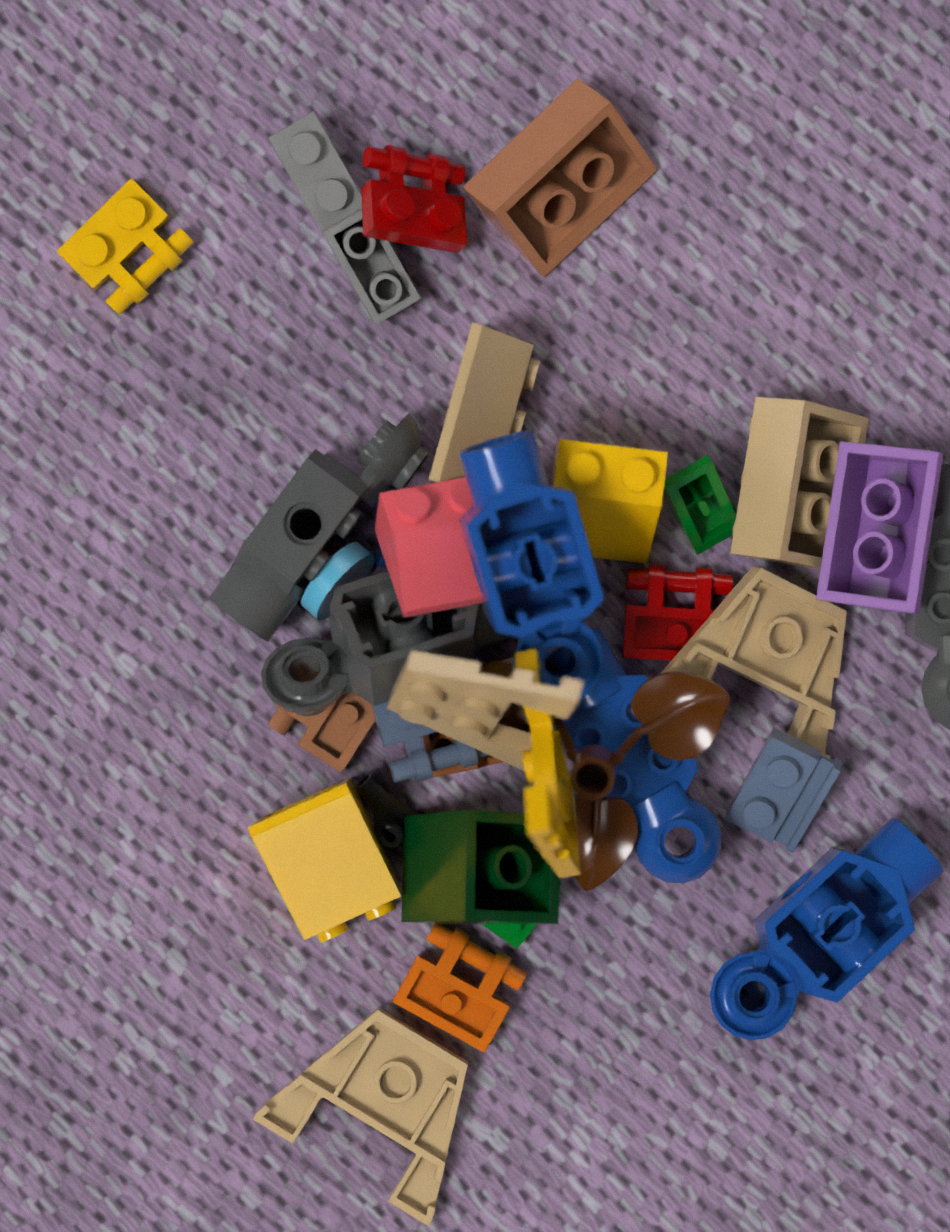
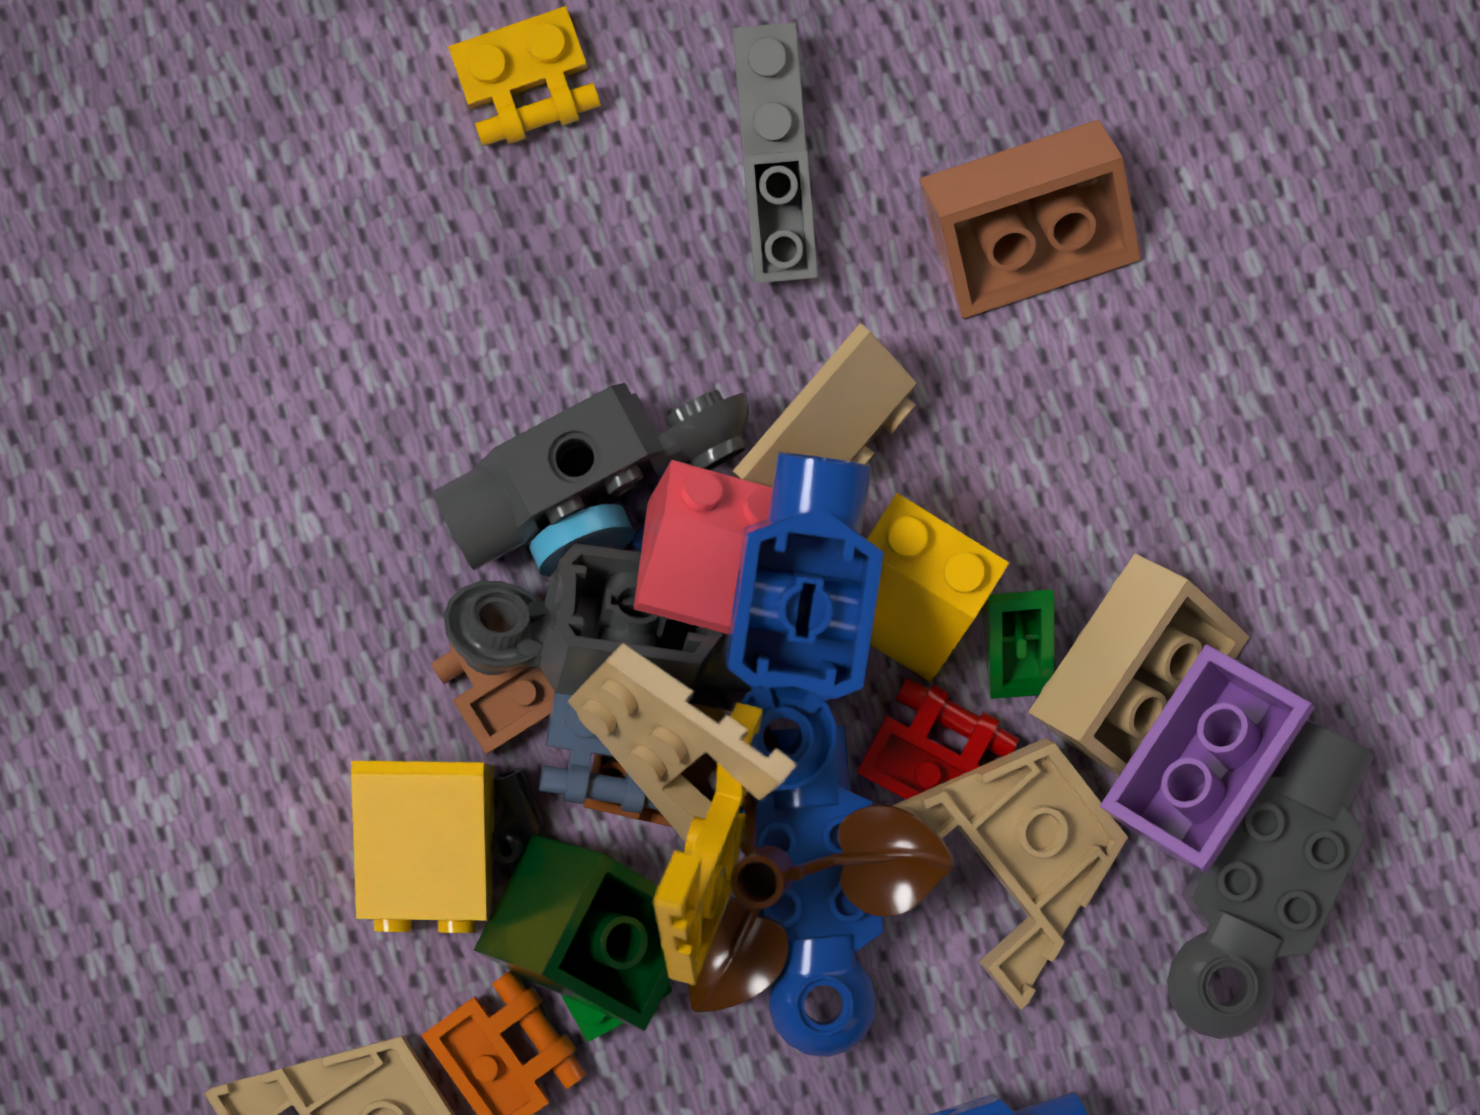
camera: 30 degrees right, 5 degrees down
(413, 214) = (851, 182): red plate -> none
(783, 790) = (966, 1003): sand blue plate -> none

